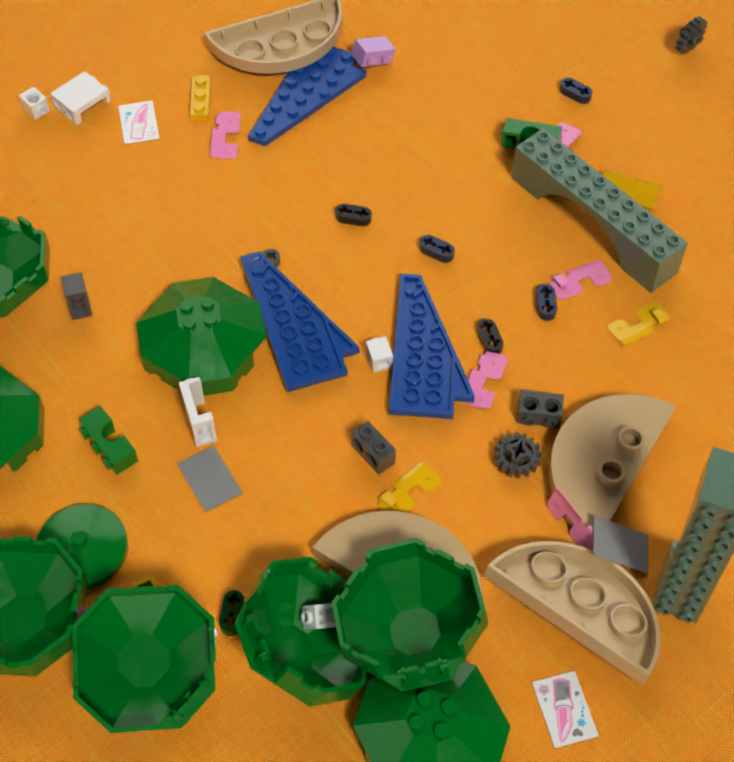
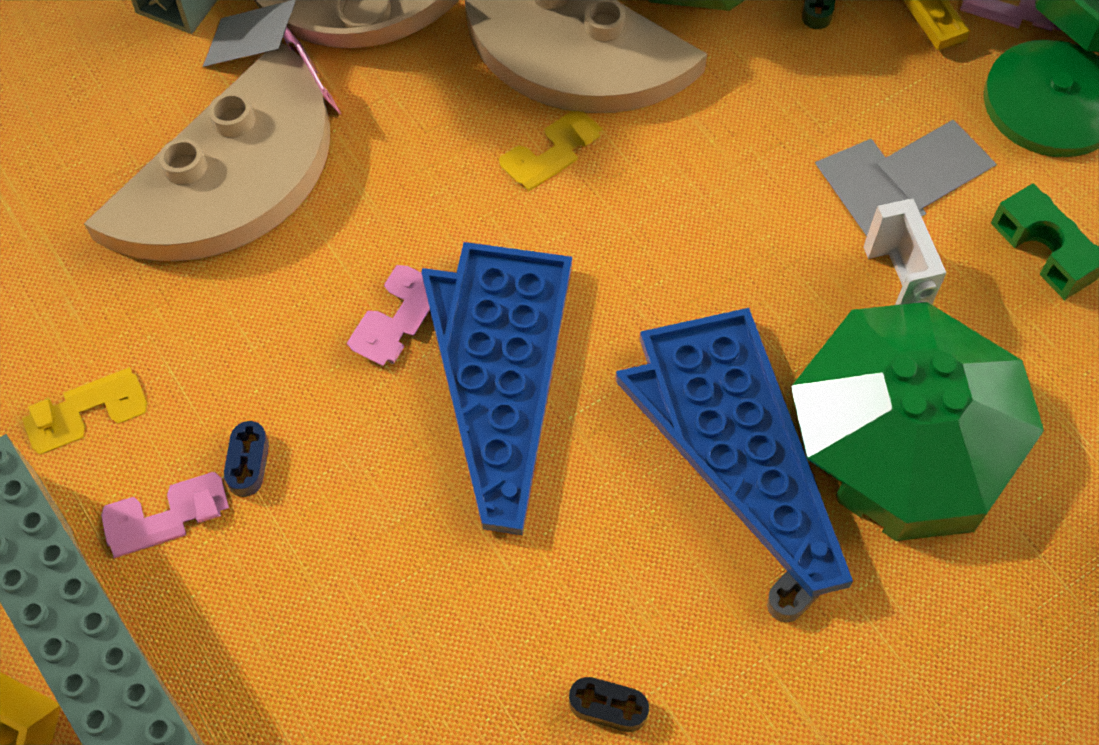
camera: 175 degrees left, 5 degrees up
(165, 496) = (936, 164): none -> light grey sticker
(373, 447) = (604, 196): dark grey brick -> none
(379, 354) = (580, 363): white brick -> none
(437, 248) = (433, 607): dark blue beam -> none
(493, 335) = (362, 394): black beam -> none
(525, 462) = (370, 174): dark grey gear -> none
(540, 405) = (312, 251): dark grey brick -> none

